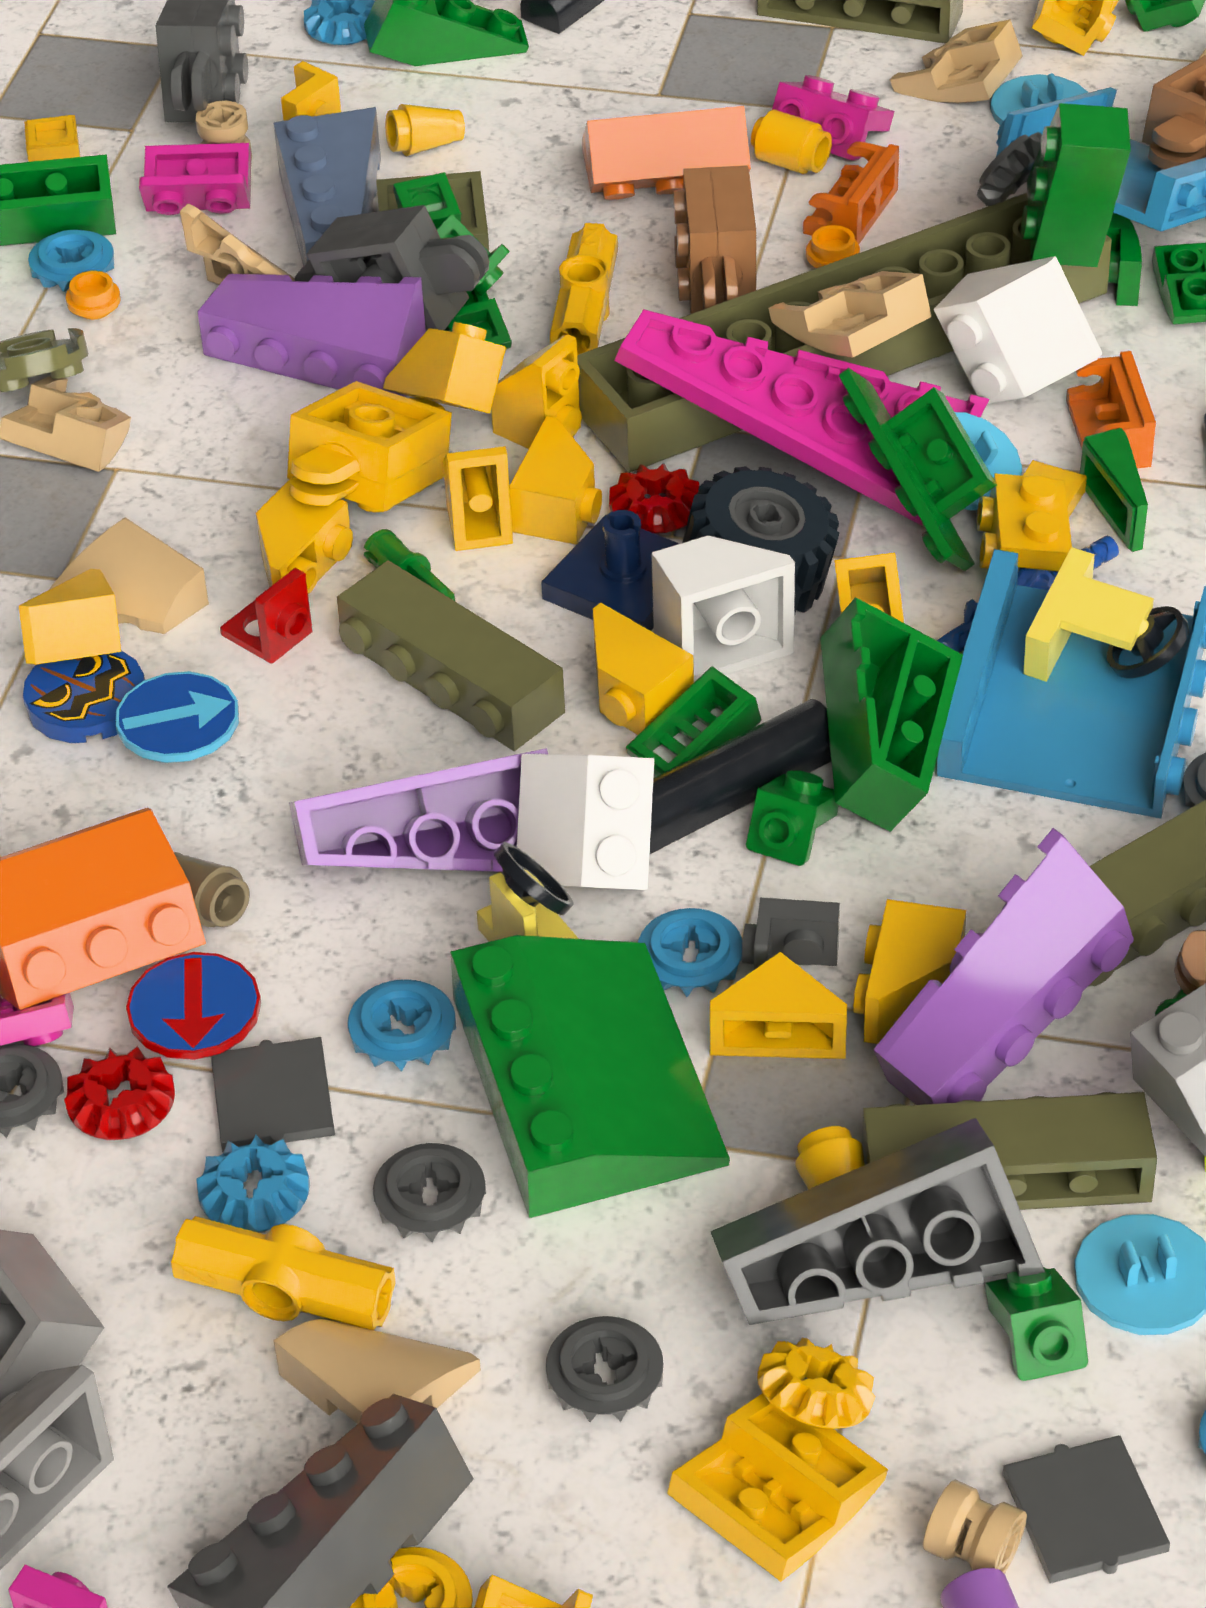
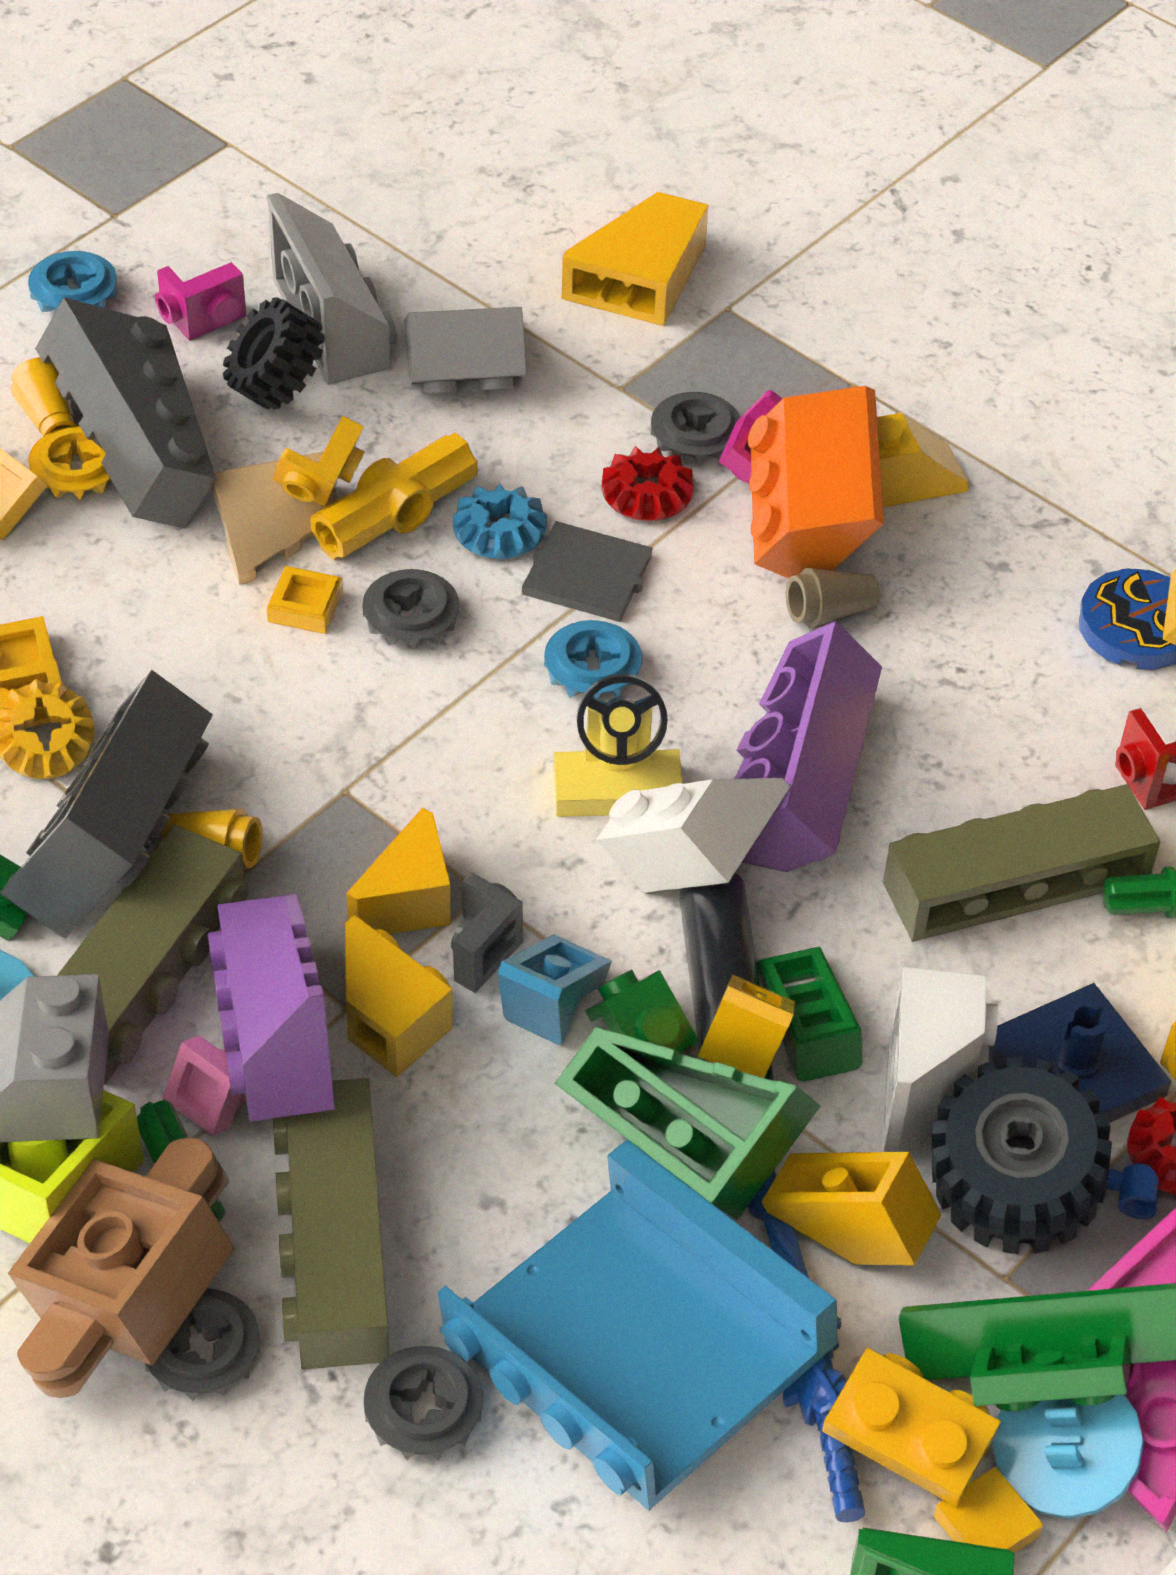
camera: 115 degrees right, 5 degrees up
(177, 717) = (1050, 646): blue piece -> none
(191, 1472) = (273, 353): none -> black tyre
(193, 1005) = (693, 536): blue piece -> none
(313, 1299) = (316, 481): none -> yellow bracket
(472, 1290) = (305, 599): none -> yellow tile
(582, 1068) = (444, 723): green slope -> none
(625, 1348) = (155, 618): dark grey gear -> none
(636, 670) = (873, 968): yellow slope -> none
(714, 937) = (531, 849): dark azure gear -> none
(775, 699) = (747, 1027): none -> yellow slope
(815, 857) = (545, 984): none -> dark azure slope
(1091, 1038) = (202, 1087): none -> bright pink tile
(1103, 614) = (676, 1346): light yellow piece -> none

